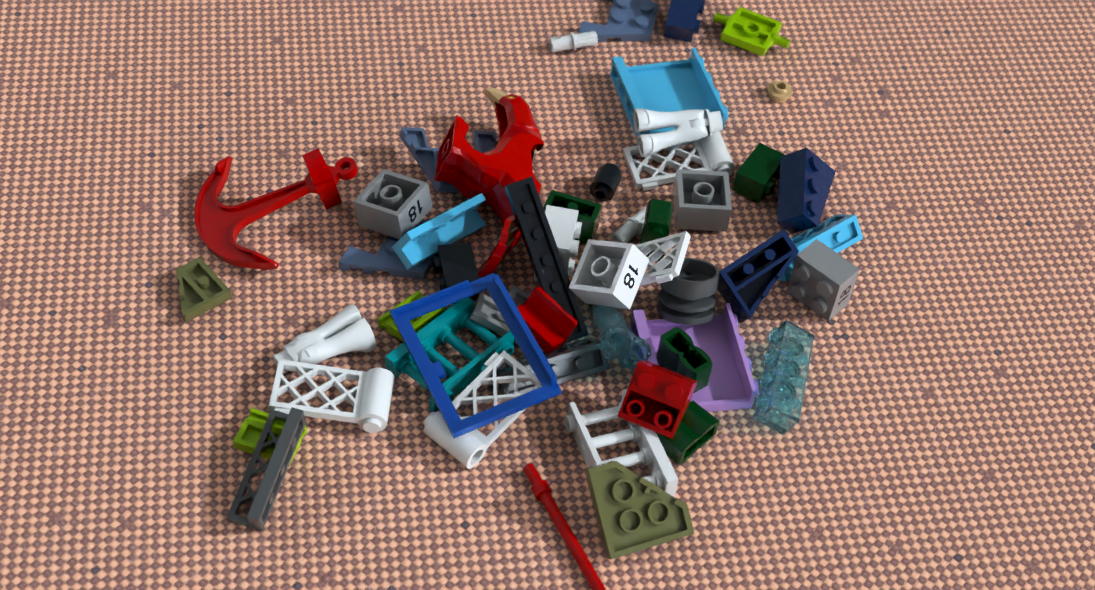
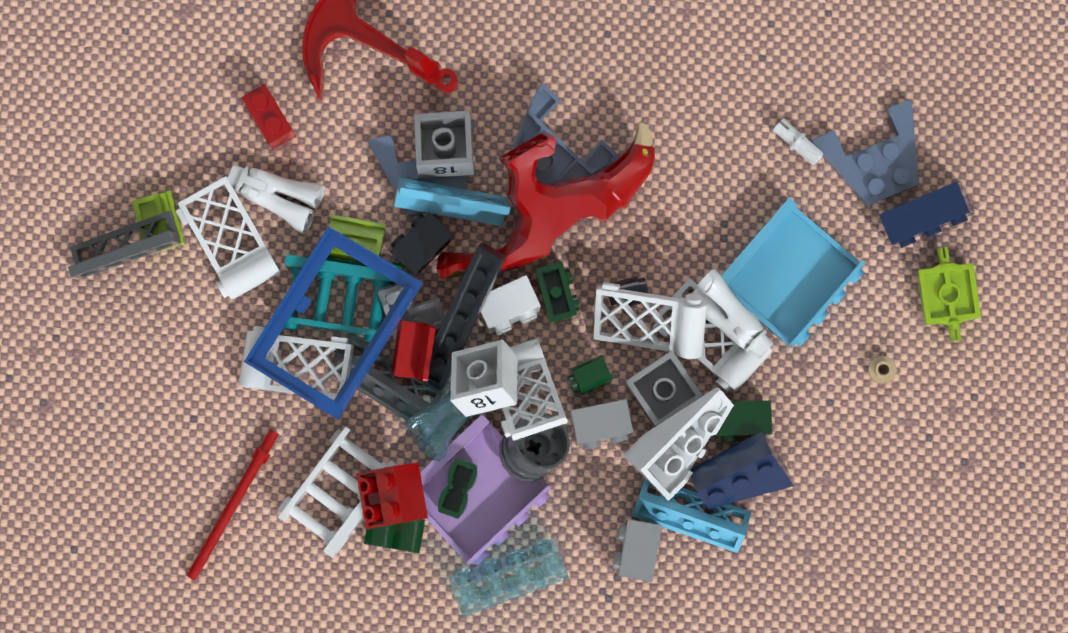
camera: 60 degrees right, 35 degrees up
(199, 289) = (257, 56): olive wing -> none
(257, 307) = (268, 116): none -> red brick
(631, 228) = (593, 348): white axle -> none
(634, 511) = (278, 542): olive plate -> none
(661, 149) = (686, 320): none -> white piece
(706, 232) = (601, 423): none -> light grey brick
(750, 204) = (672, 447): none -> white wedge
(755, 273) = (595, 491): dark blue wedge -> none

